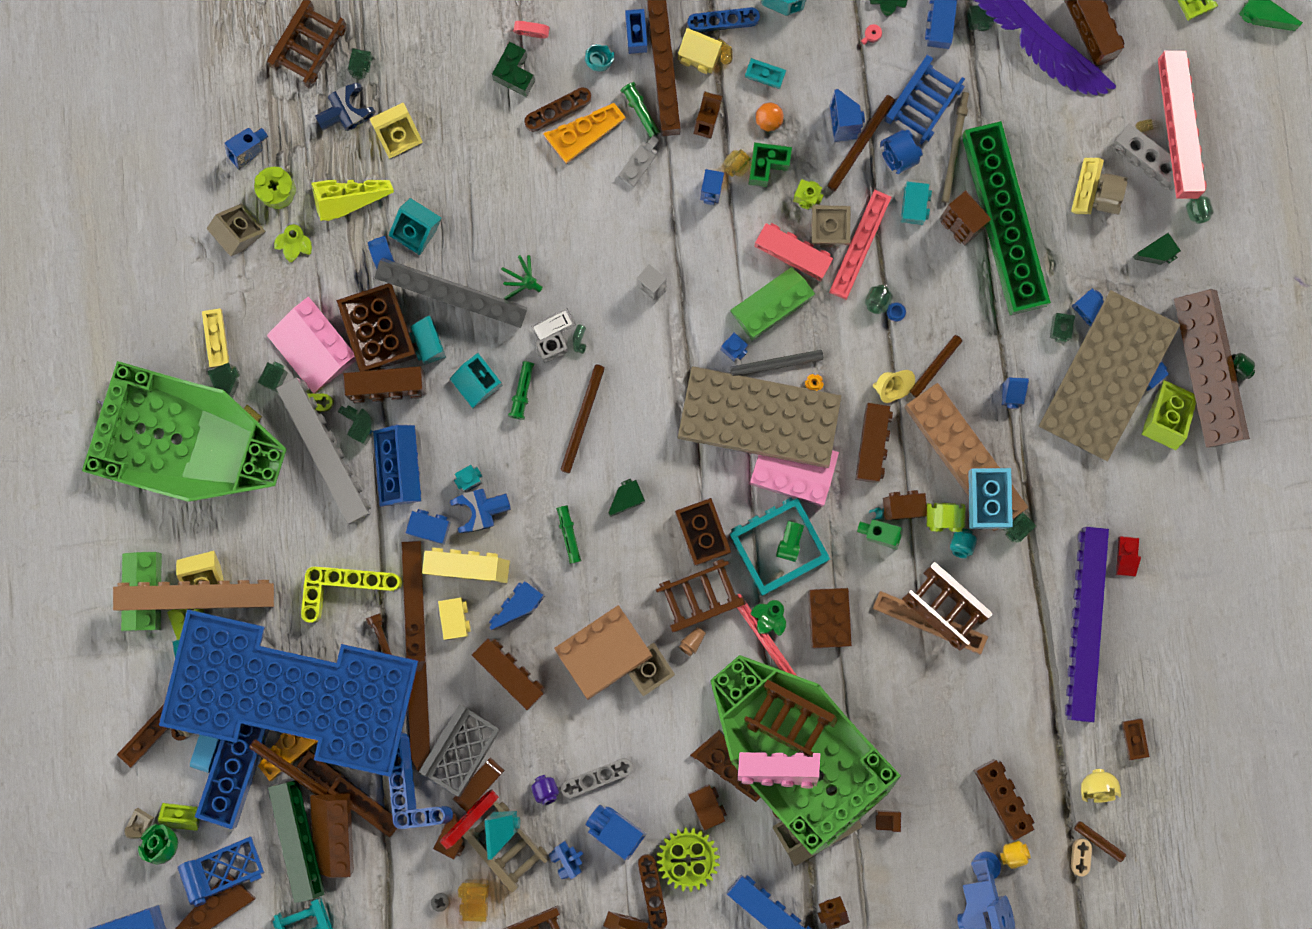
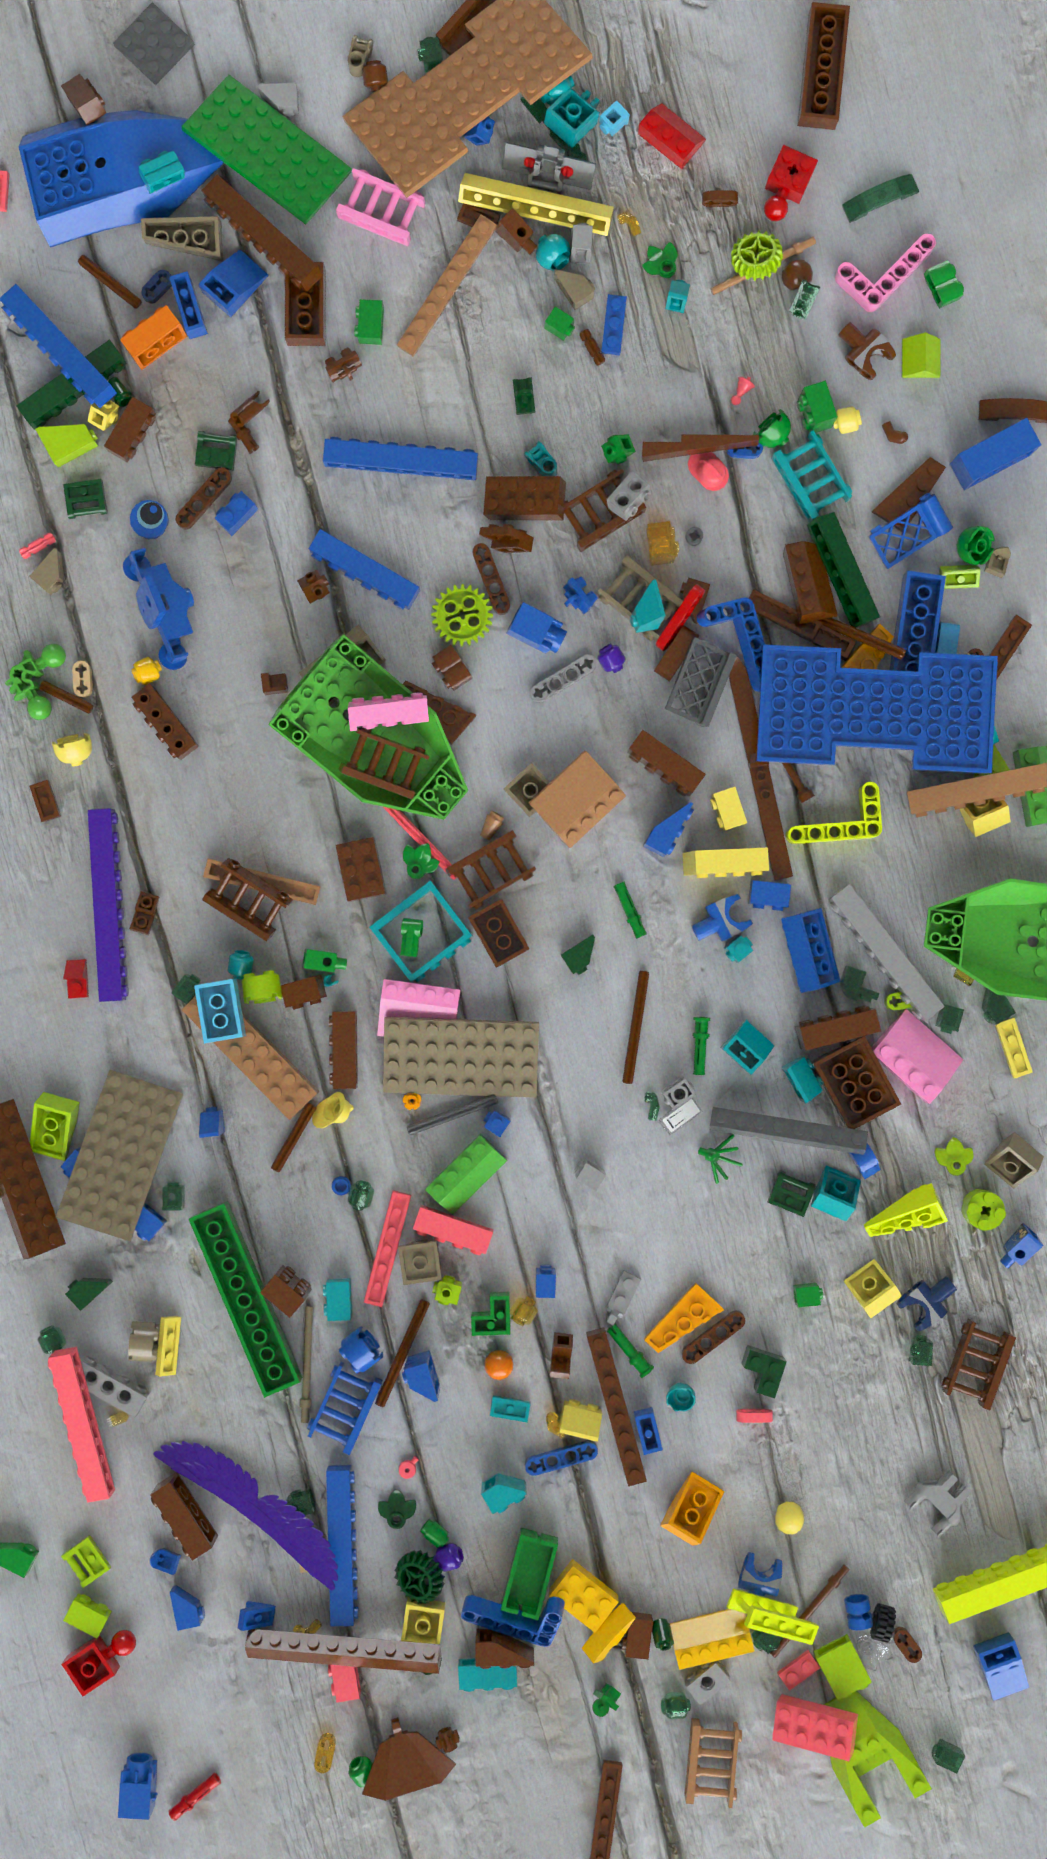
camera: 175 degrees right, 5 degrees up
(459, 134) = (807, 1295): none -> green brick
(462, 228) = (788, 1199): none -> dark green plate
(1051, 610) = (144, 913): none -> reddish brown slope
(1129, 835) = (38, 706): none -> bright green piece

